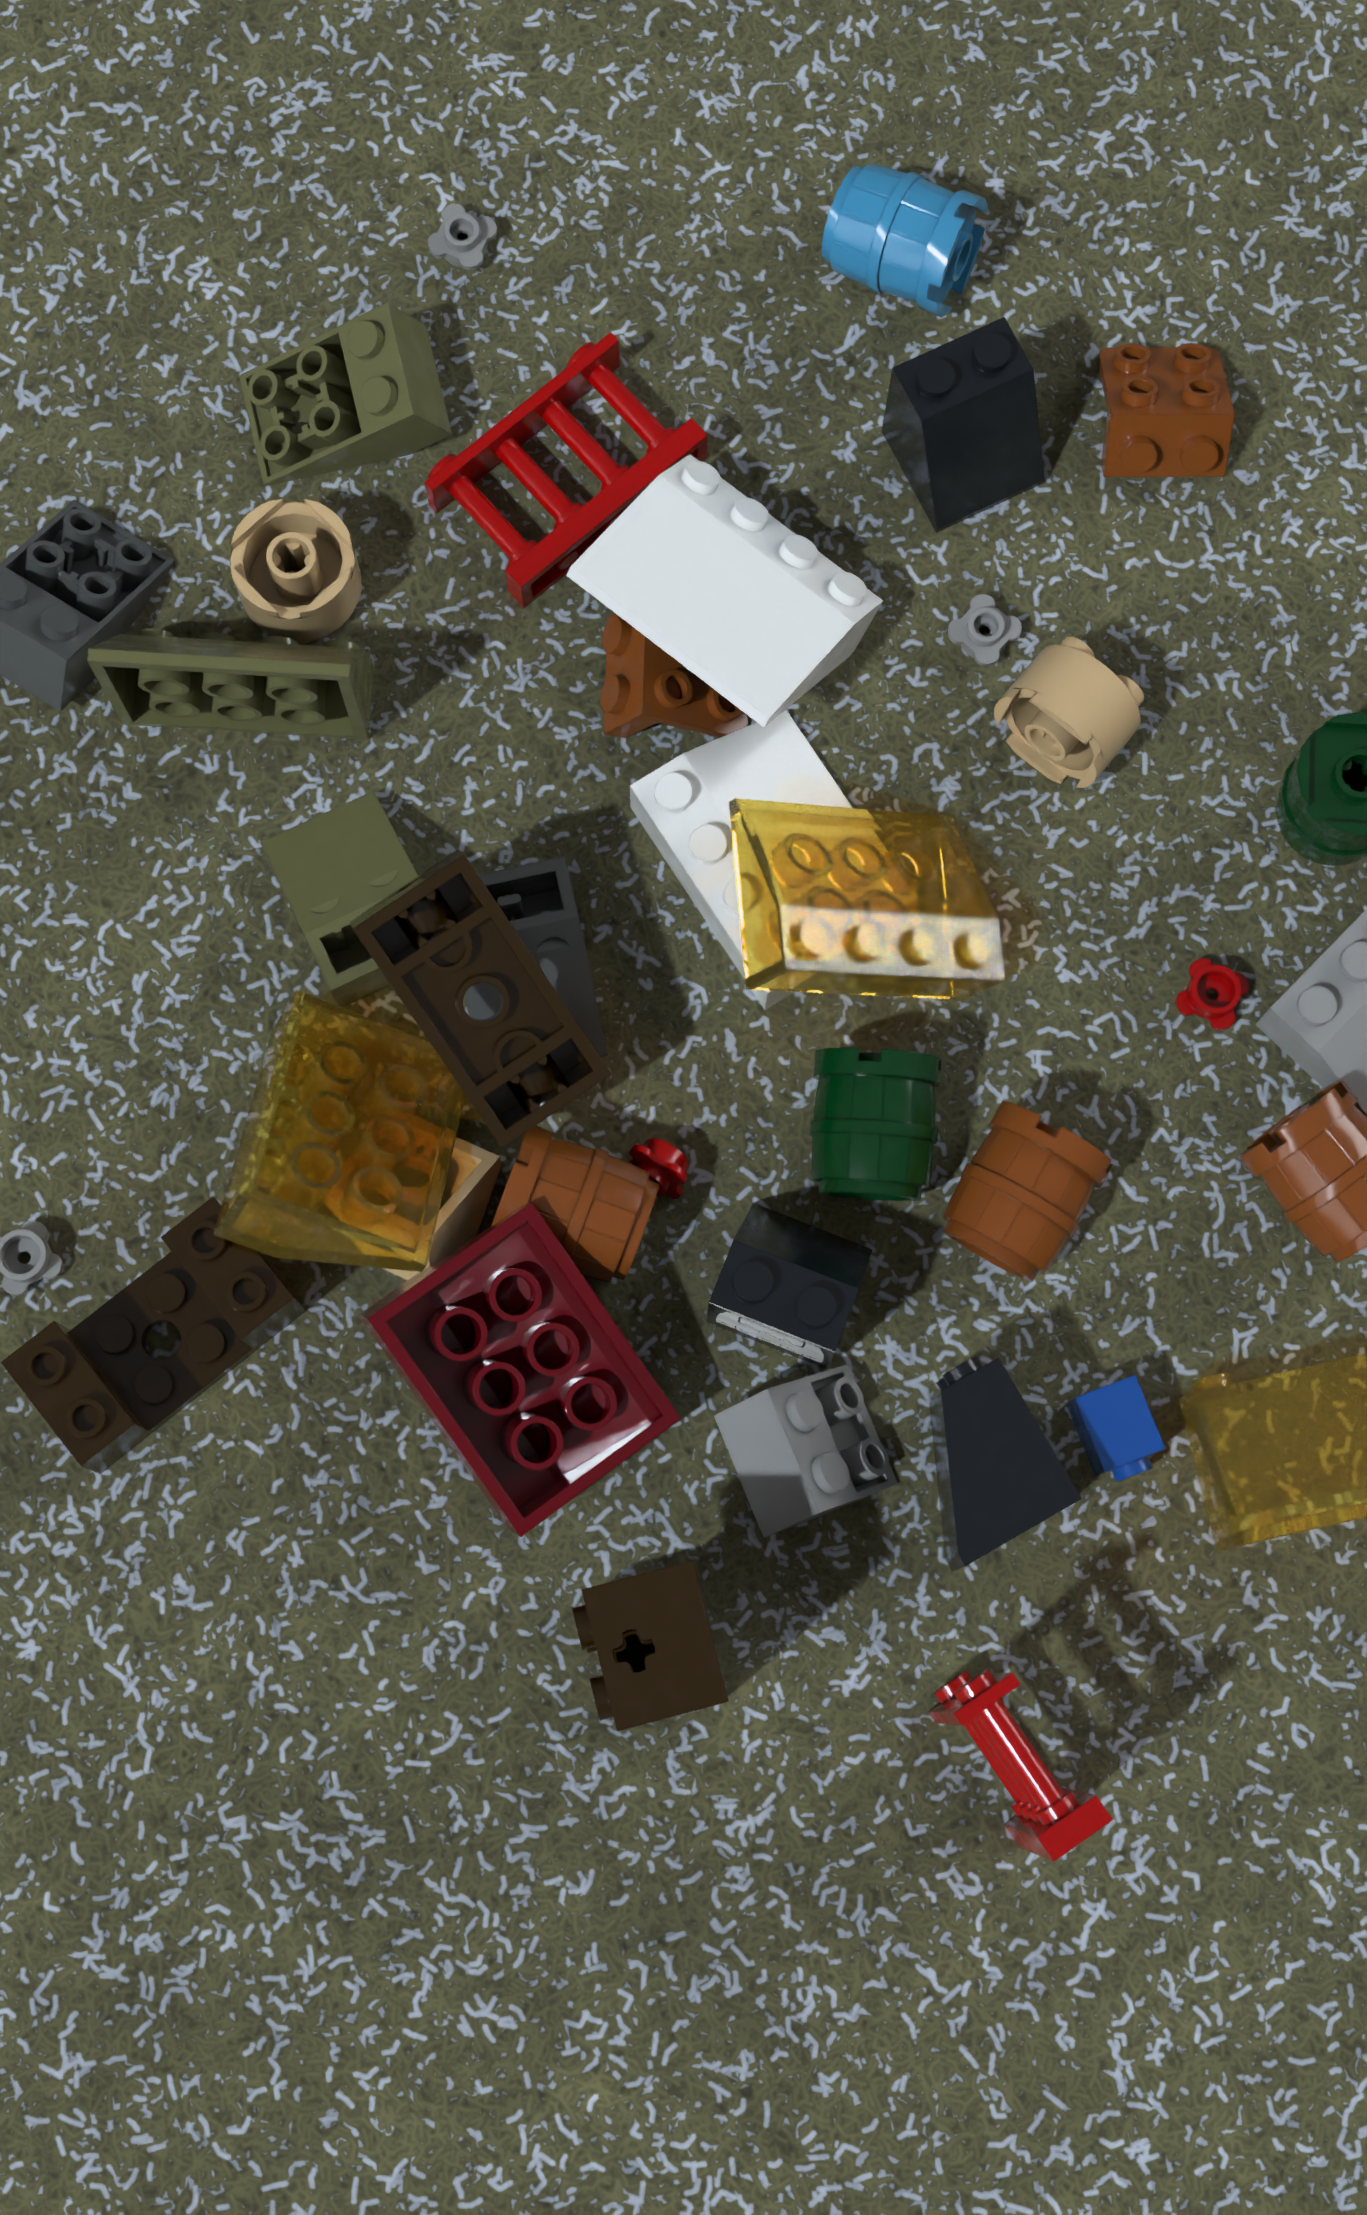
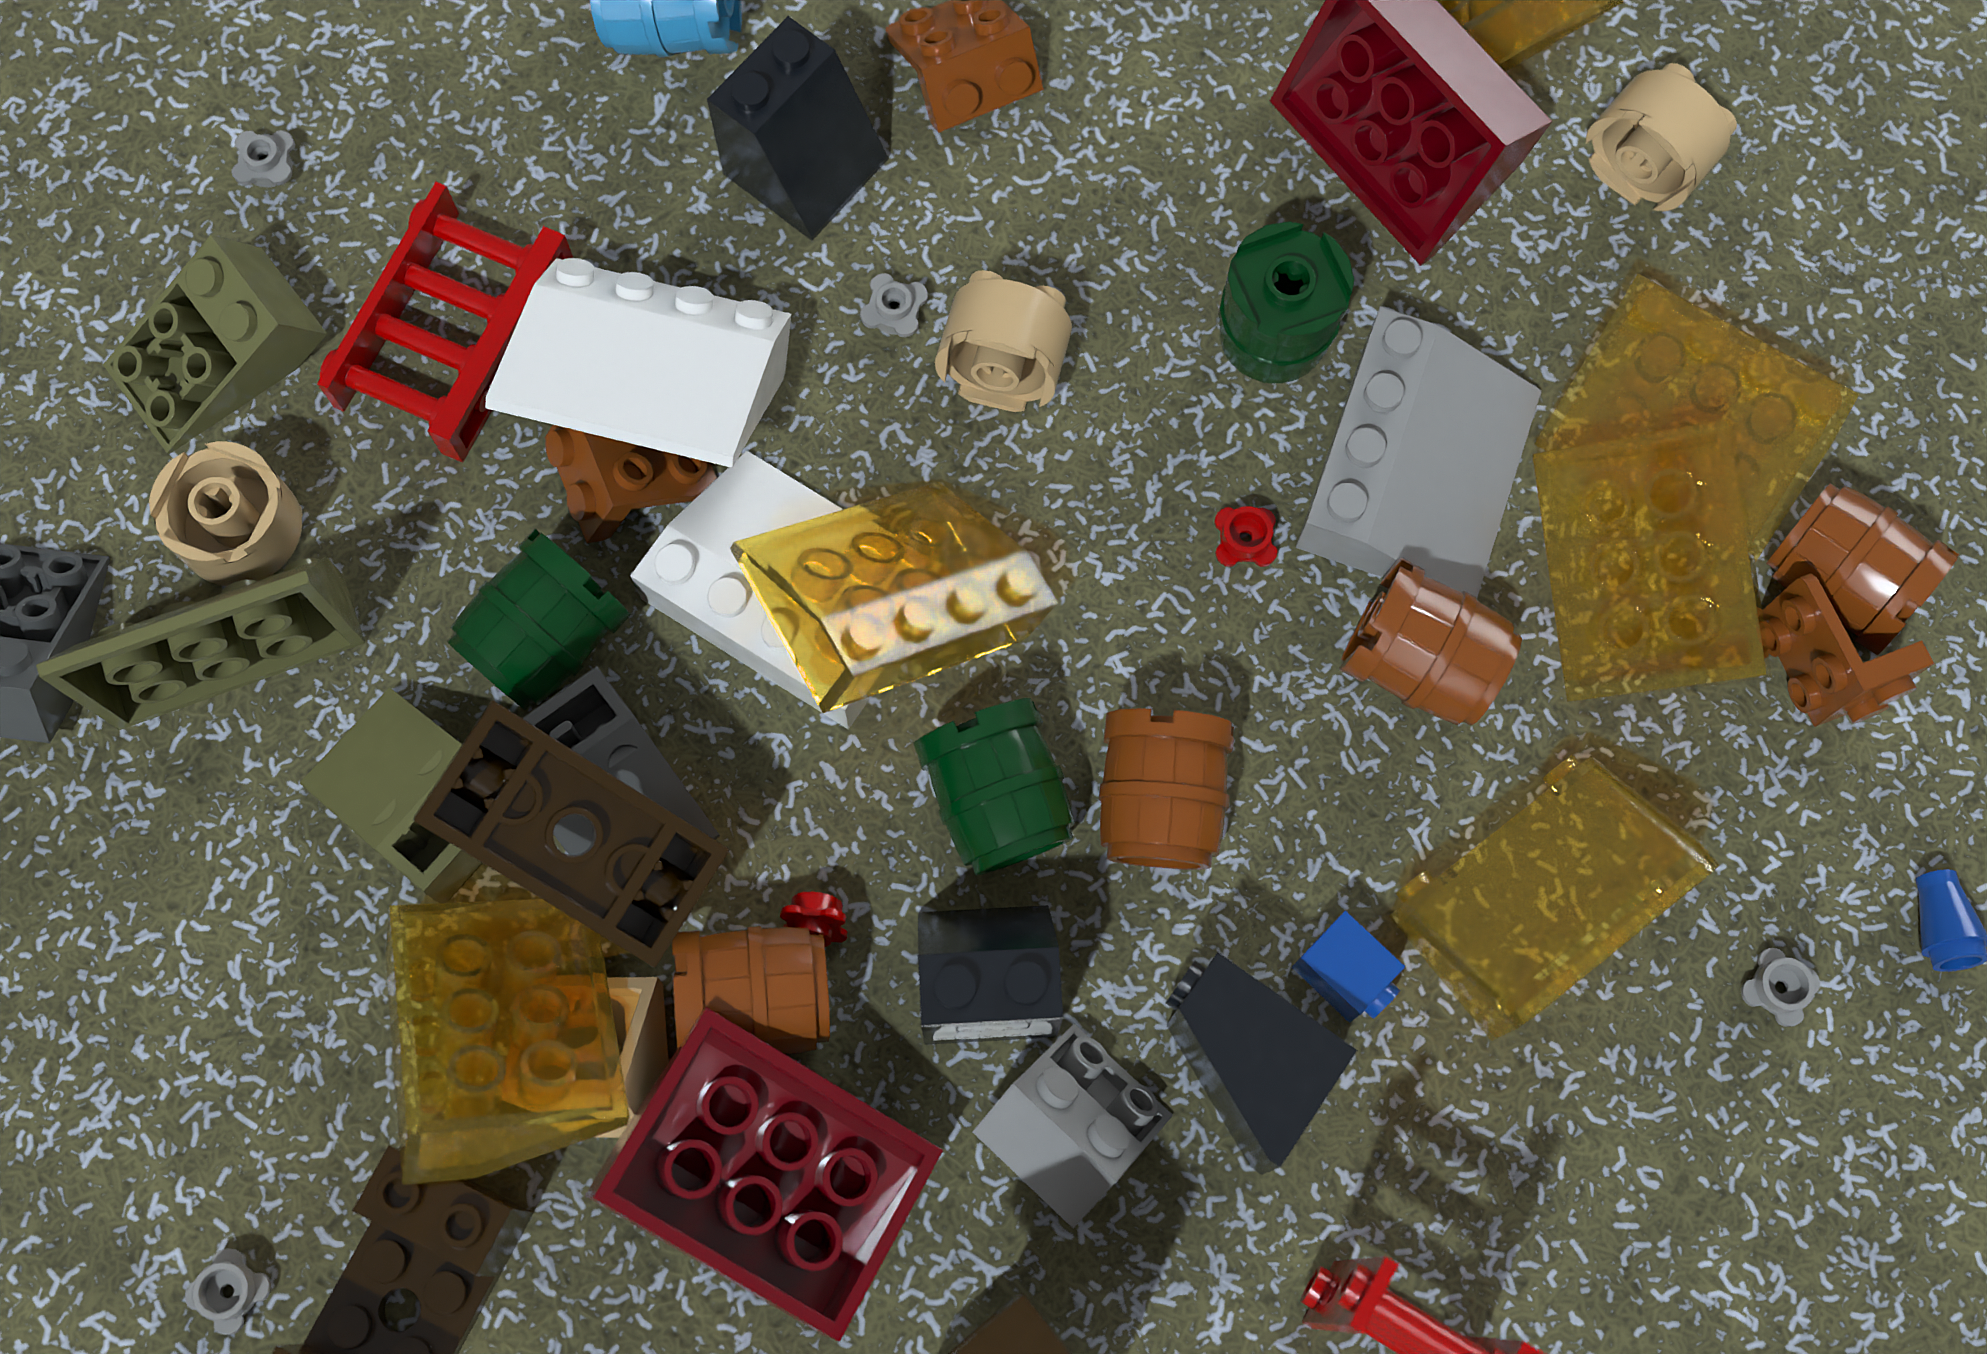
camera: 25 degrees left, 5 degrees down
(527, 790) = (535, 622): none -> dark green piece

